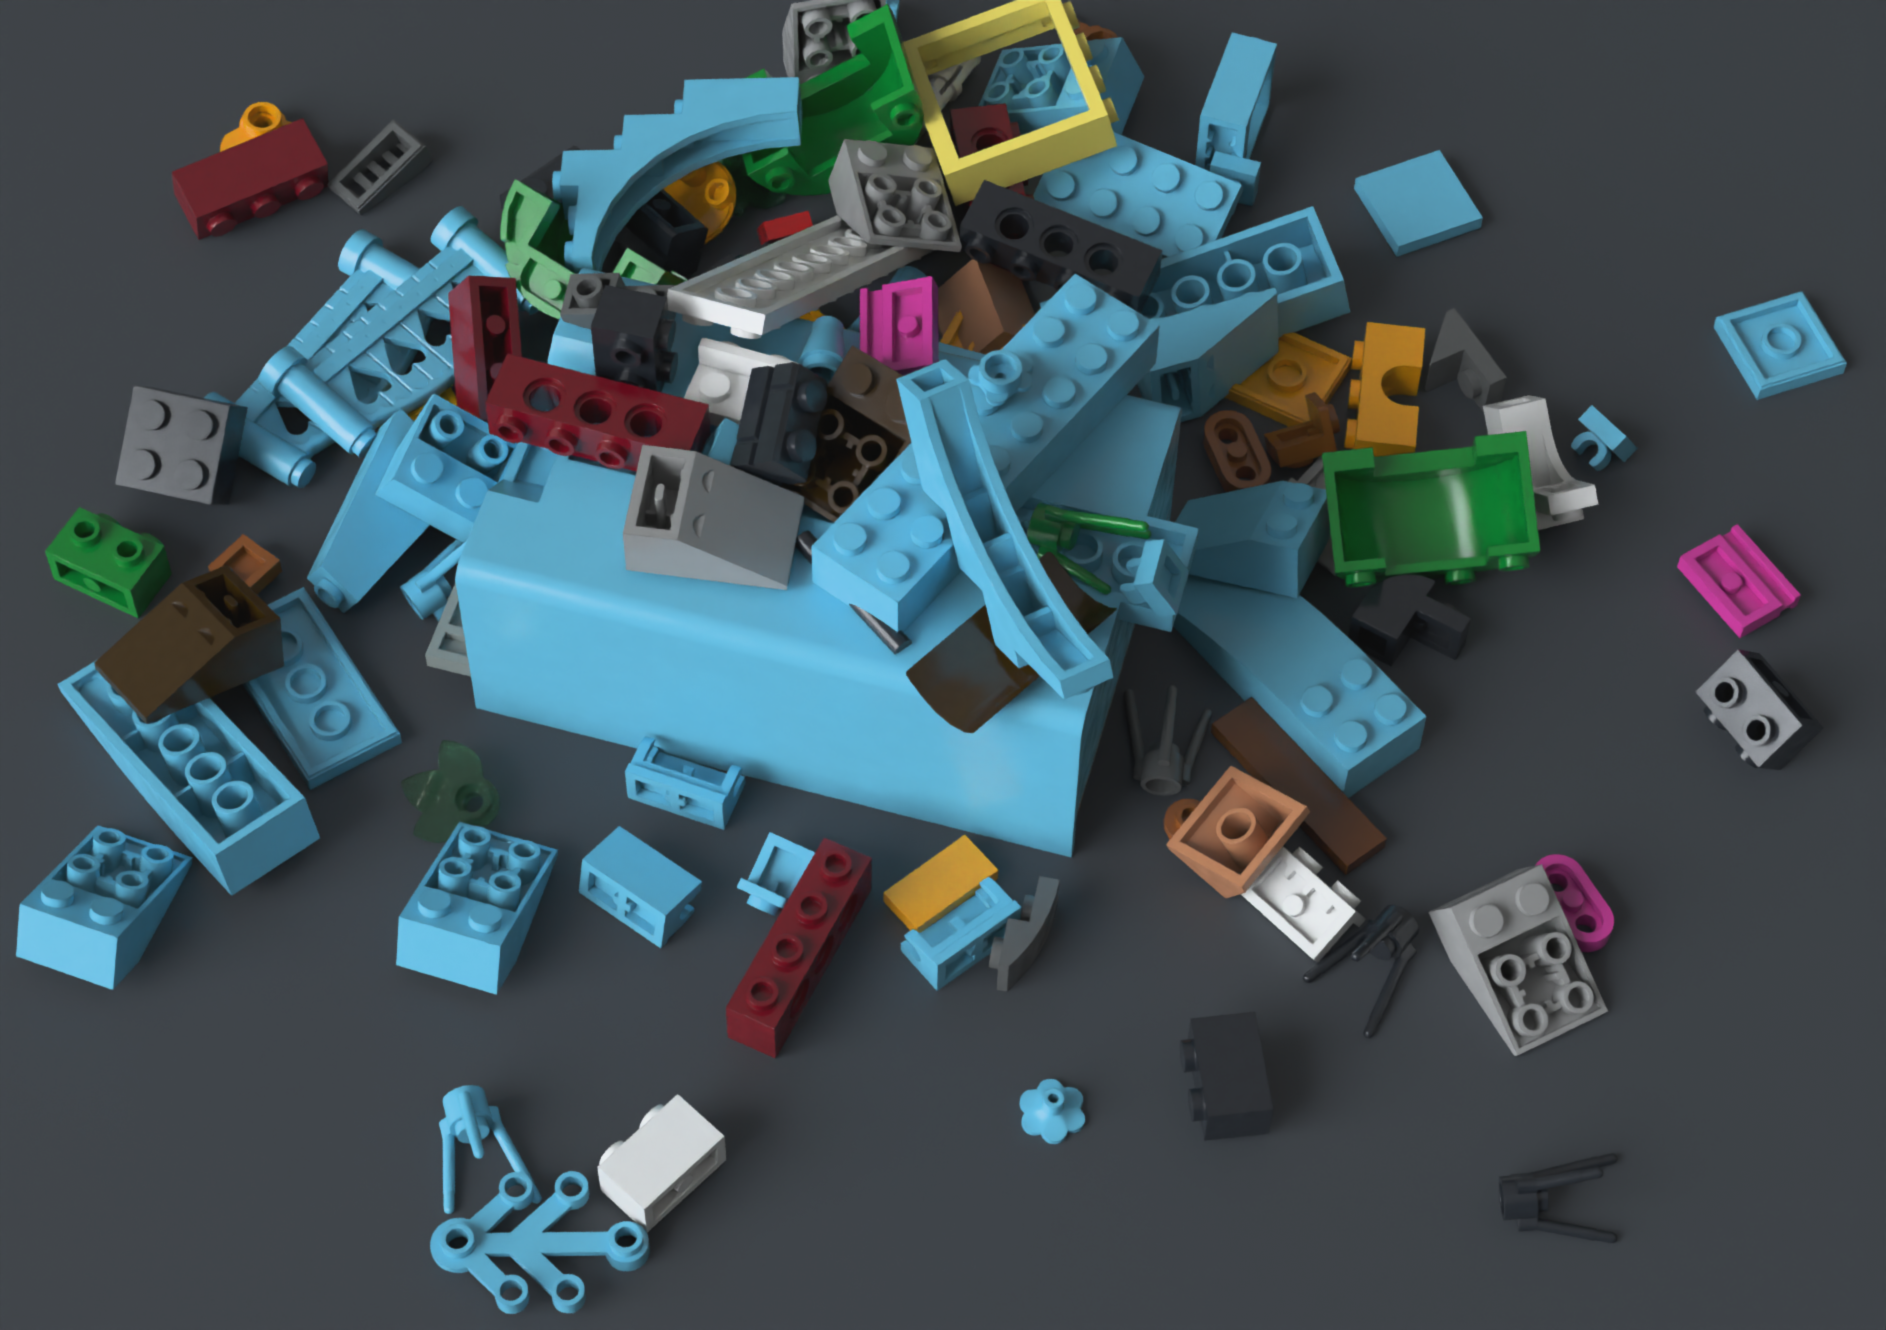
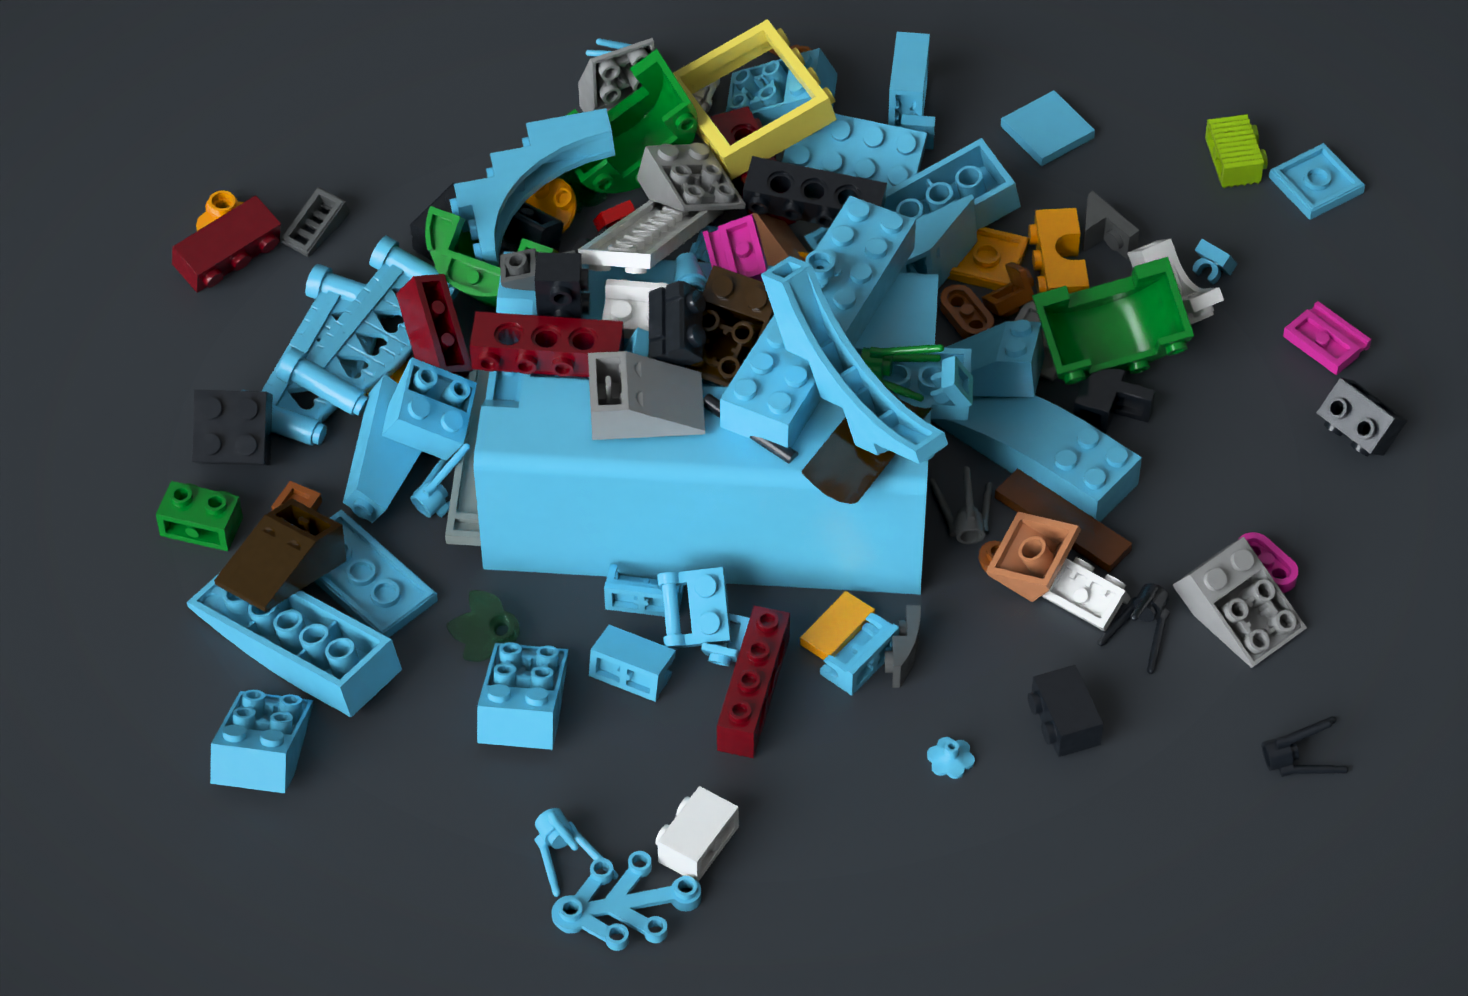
camera: 10 degrees left, 5 degrees down
(759, 825) = (707, 607): none -> medium azure plate
(1673, 281) = (1235, 150): none -> lime brick

